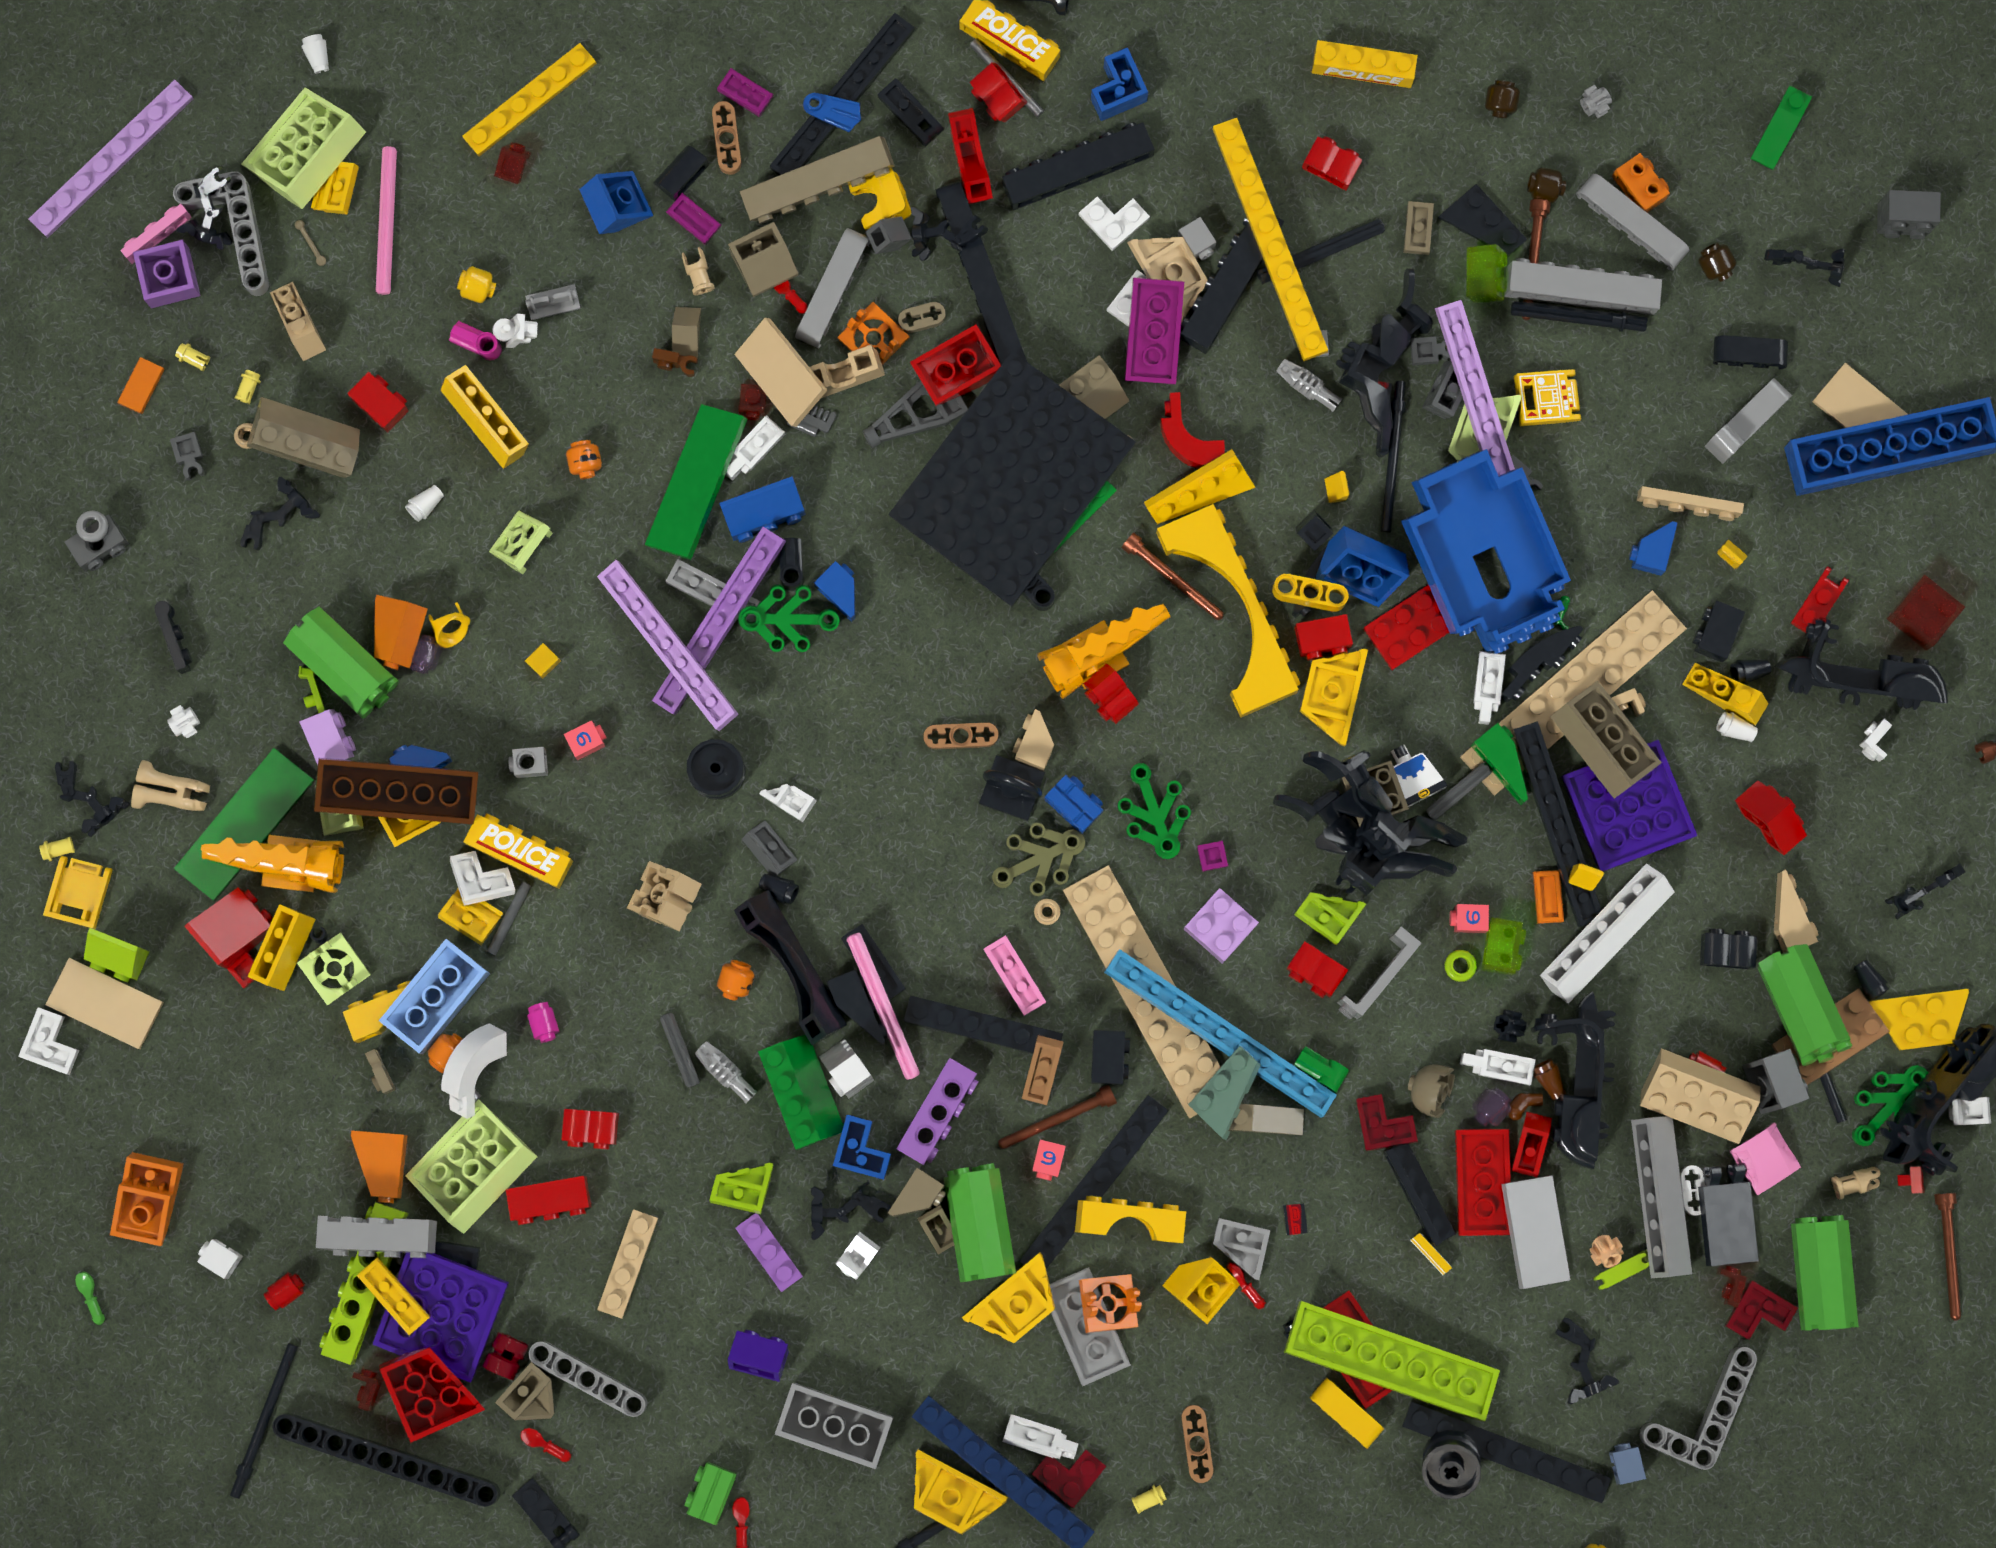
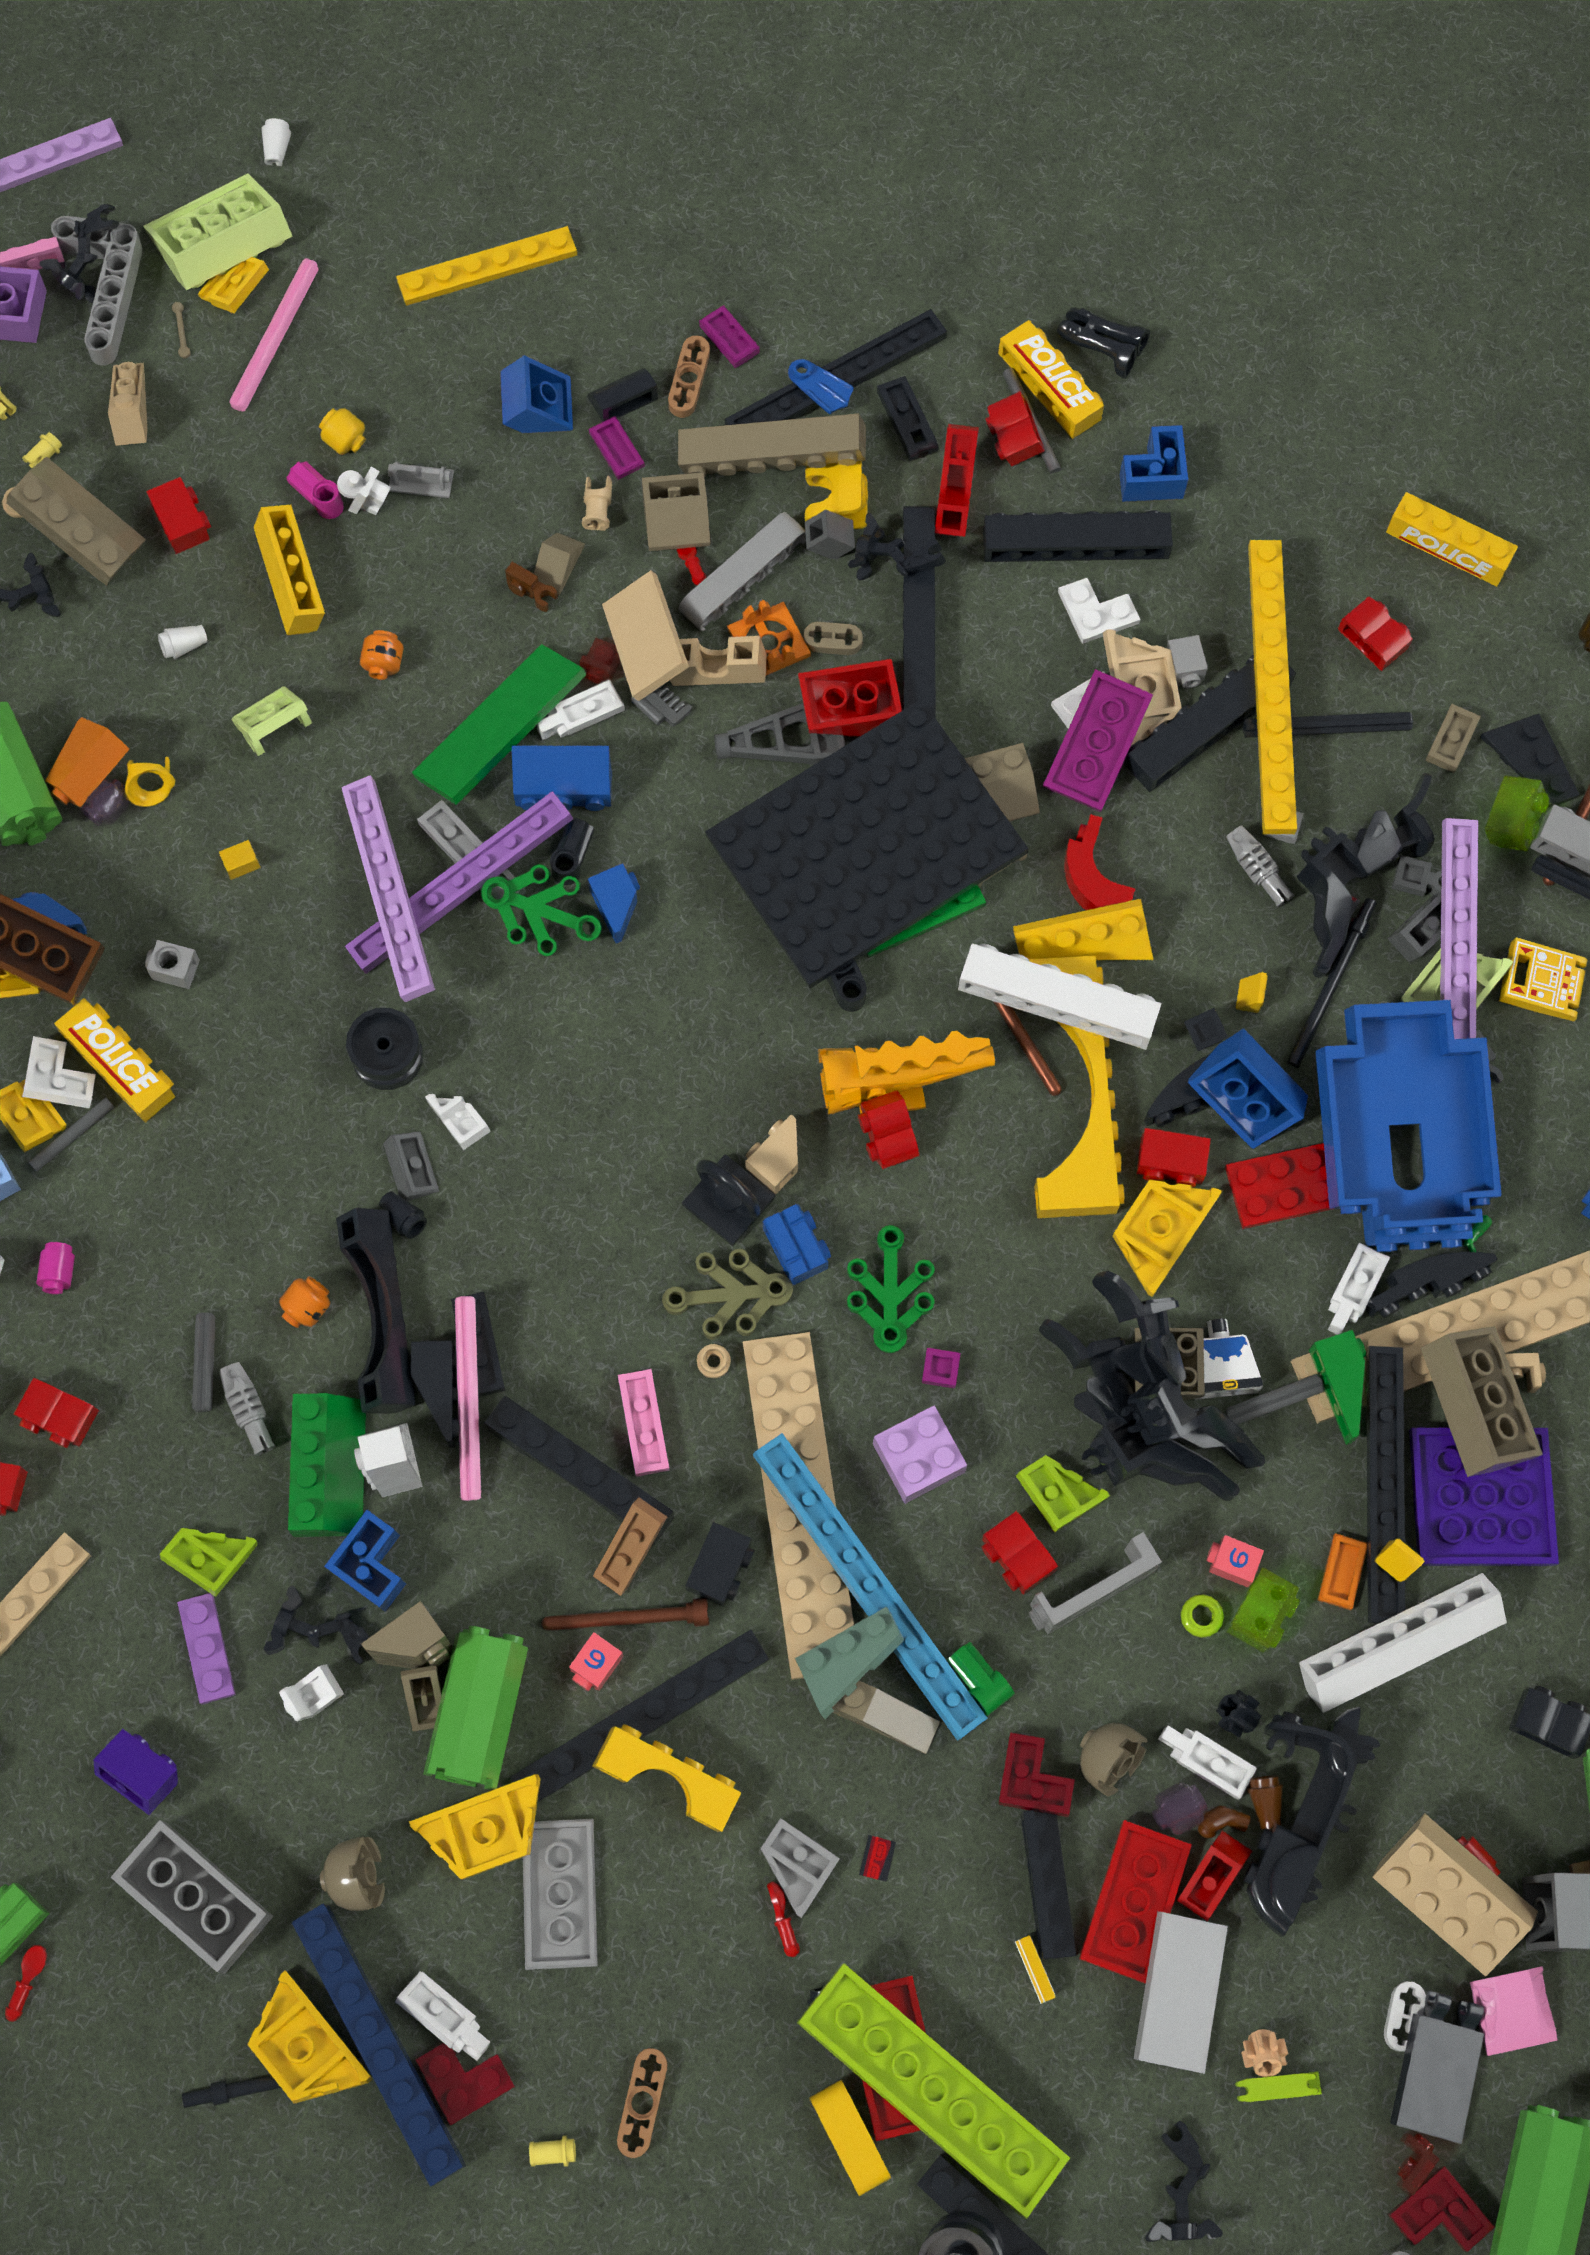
camera: 20 degrees right, 10 degrees down
(512, 162) = (438, 320): clear red bracket -> none
(585, 739) = (248, 962): coral brick -> none
(664, 896) = (261, 1171): tan brick -> none
(938, 1368) = (351, 1875): none -> dark tan cylinder
(951, 1073) = (488, 1533): medium lavender brick -> none
(954, 727) = (686, 1105): medium nougat beam -> none
(1091, 1307) = (630, 1856): orange piece -> none
(1199, 547) = (1059, 996): none -> white brick
(1202, 1287) = (726, 1899): yellow slope -> none
(1298, 597) = (1167, 1080): yellow beam -> none
(1661, 1197) = (1360, 2009): light grey brick -> none

